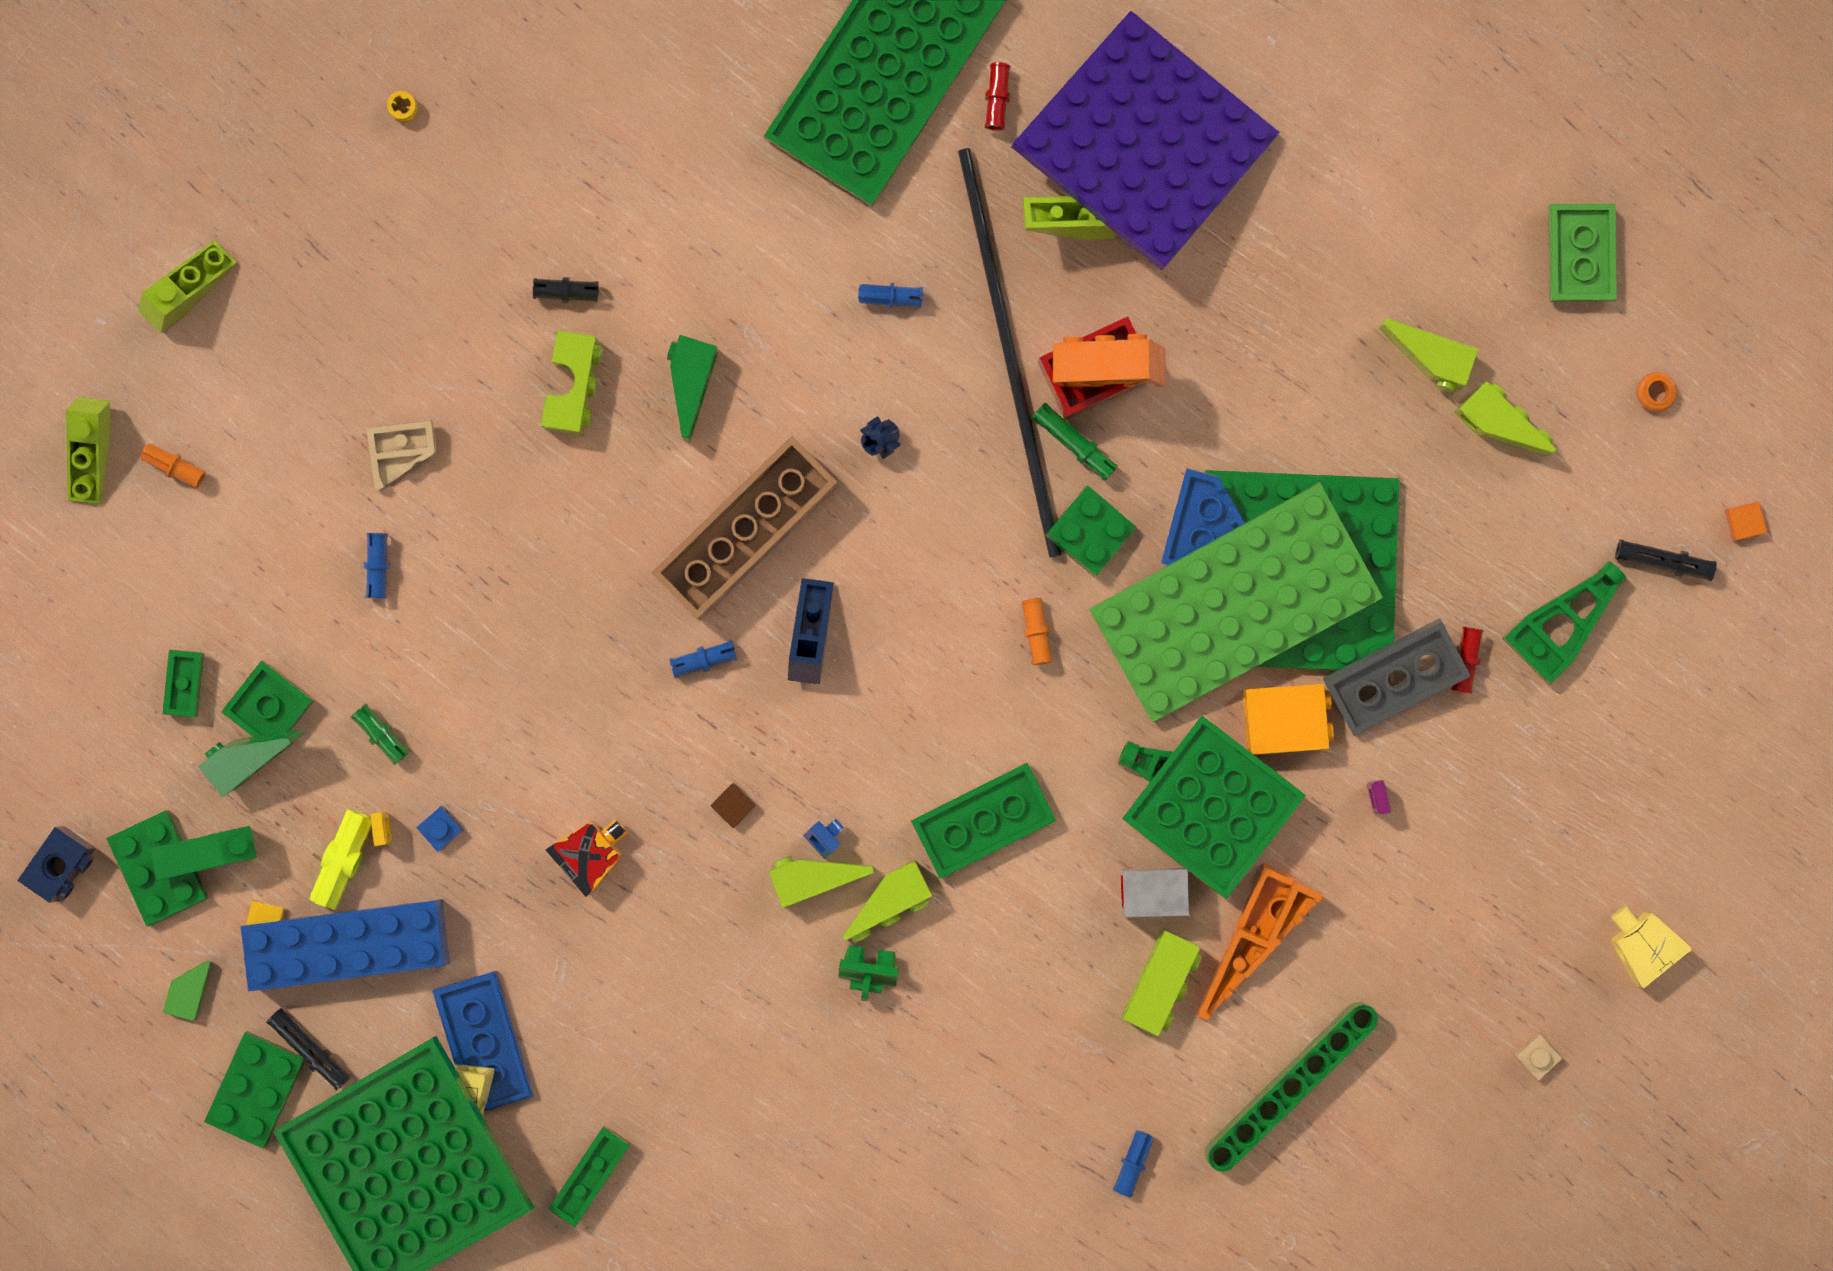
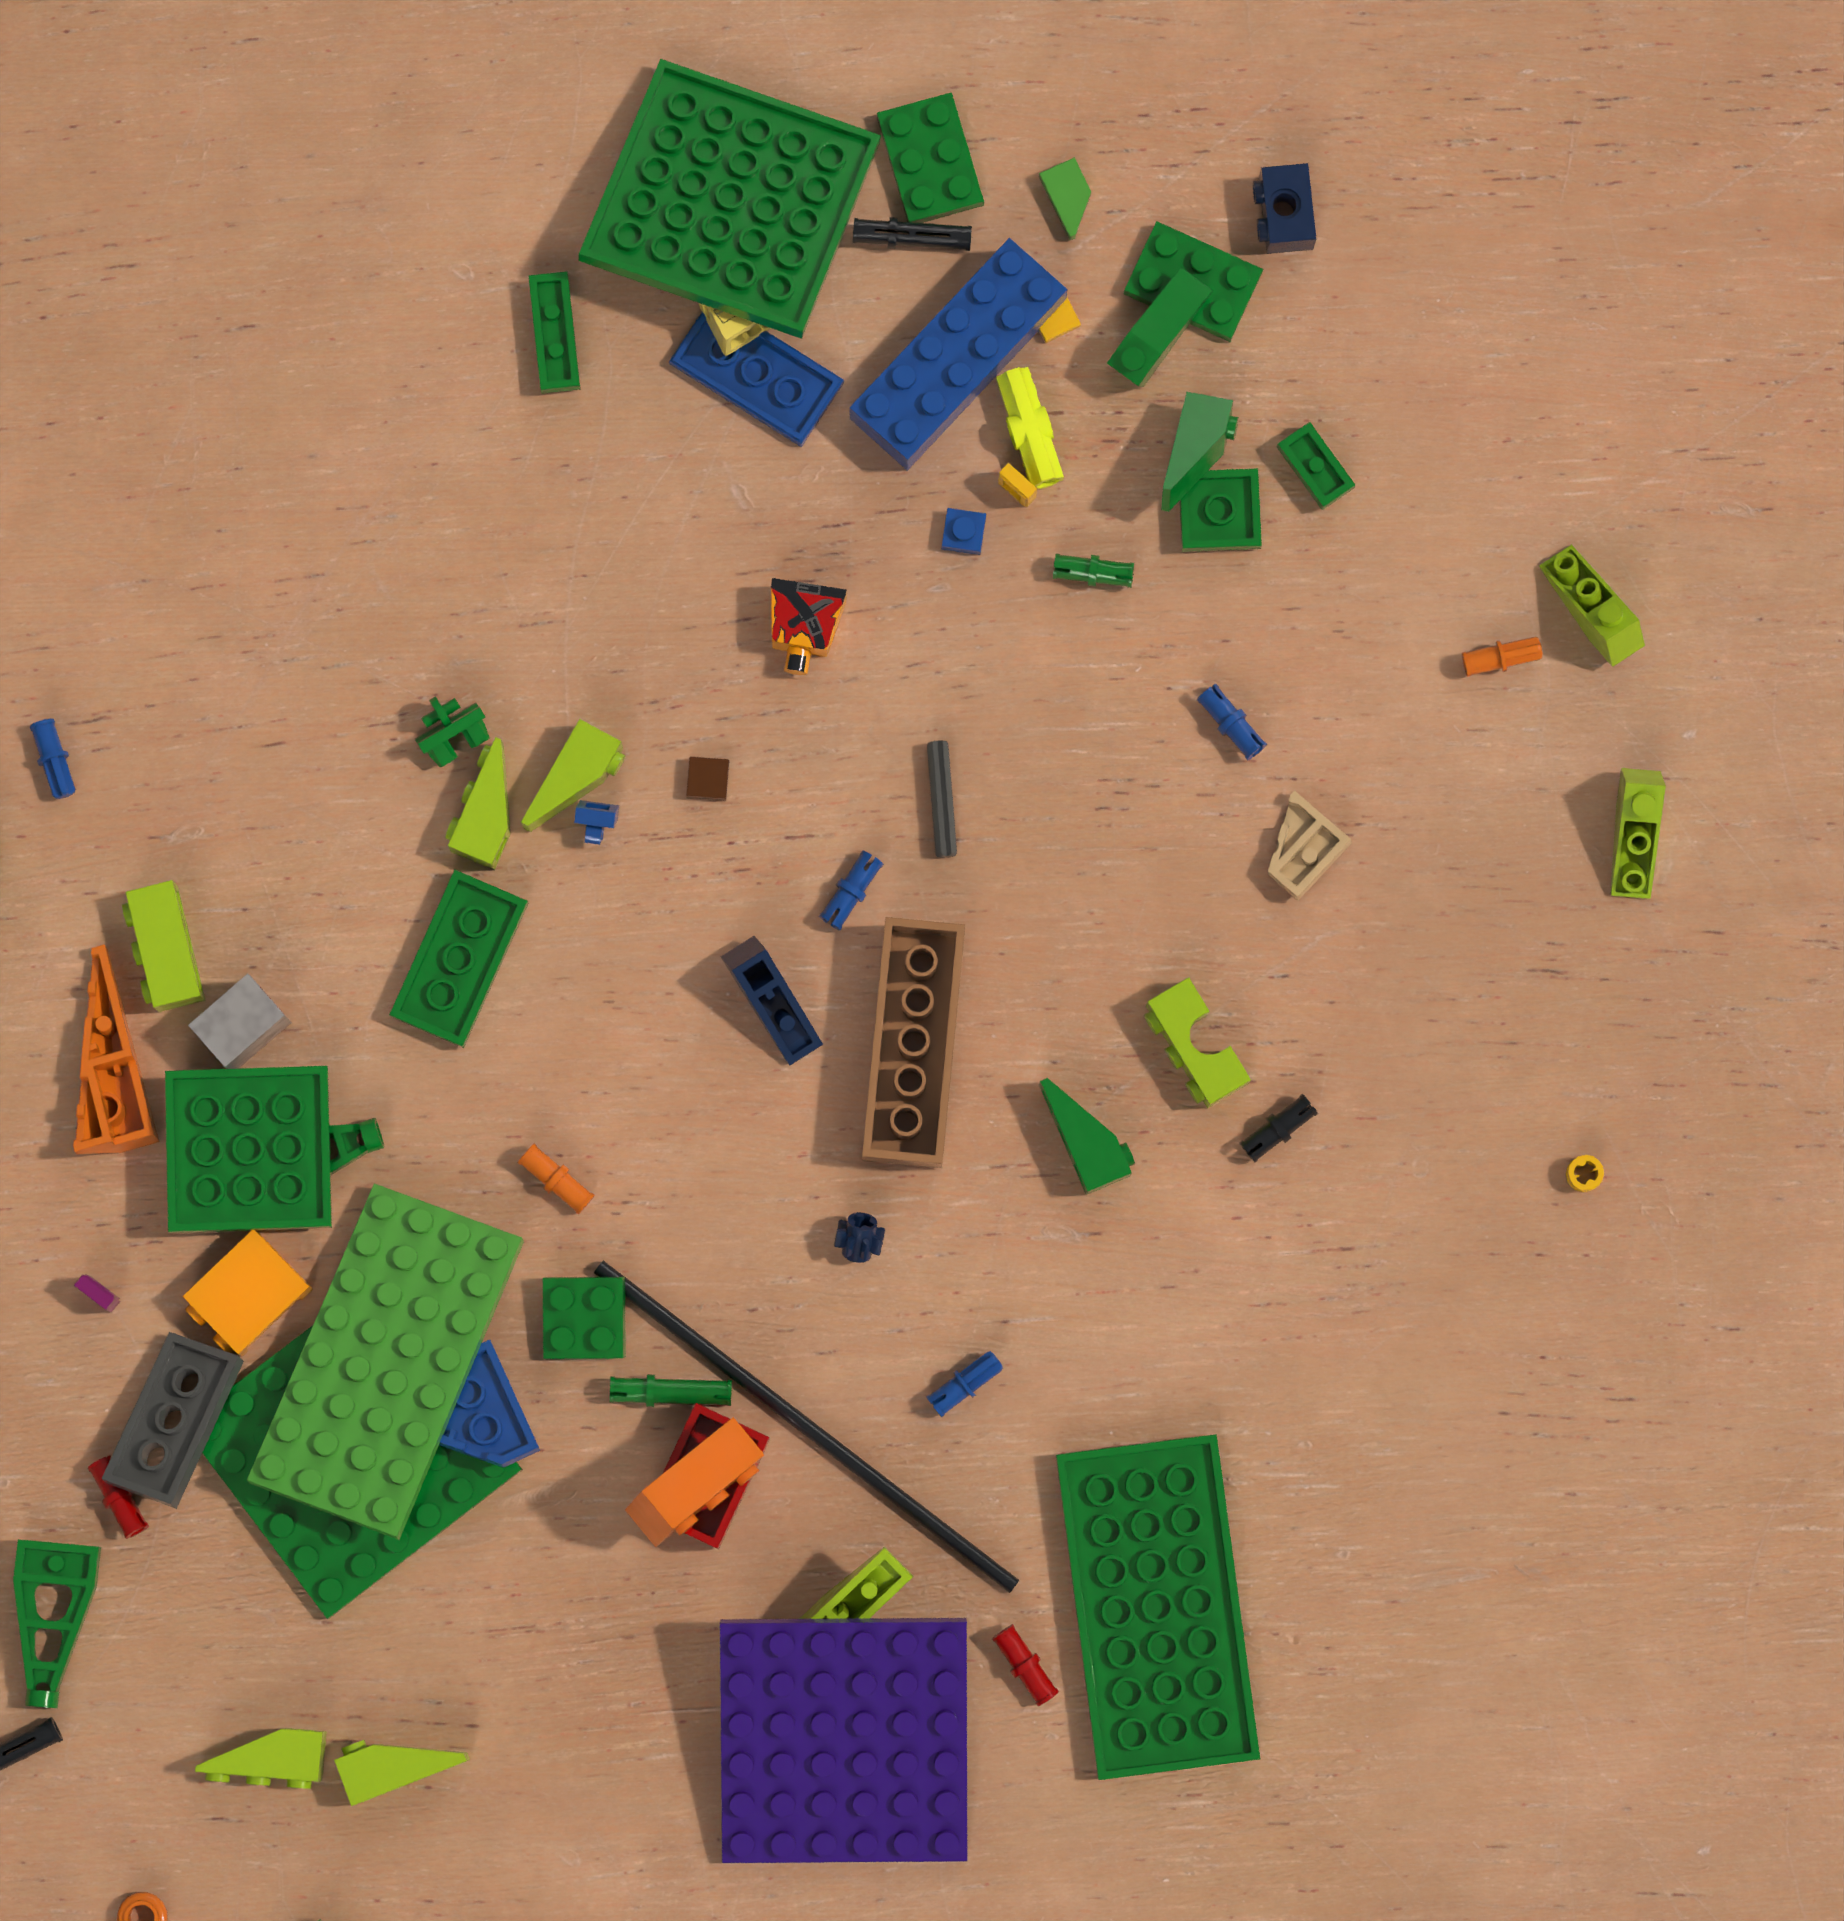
camera: 135 degrees right, 5 degrees down
(598, 669) = (942, 799): none -> dark grey axle

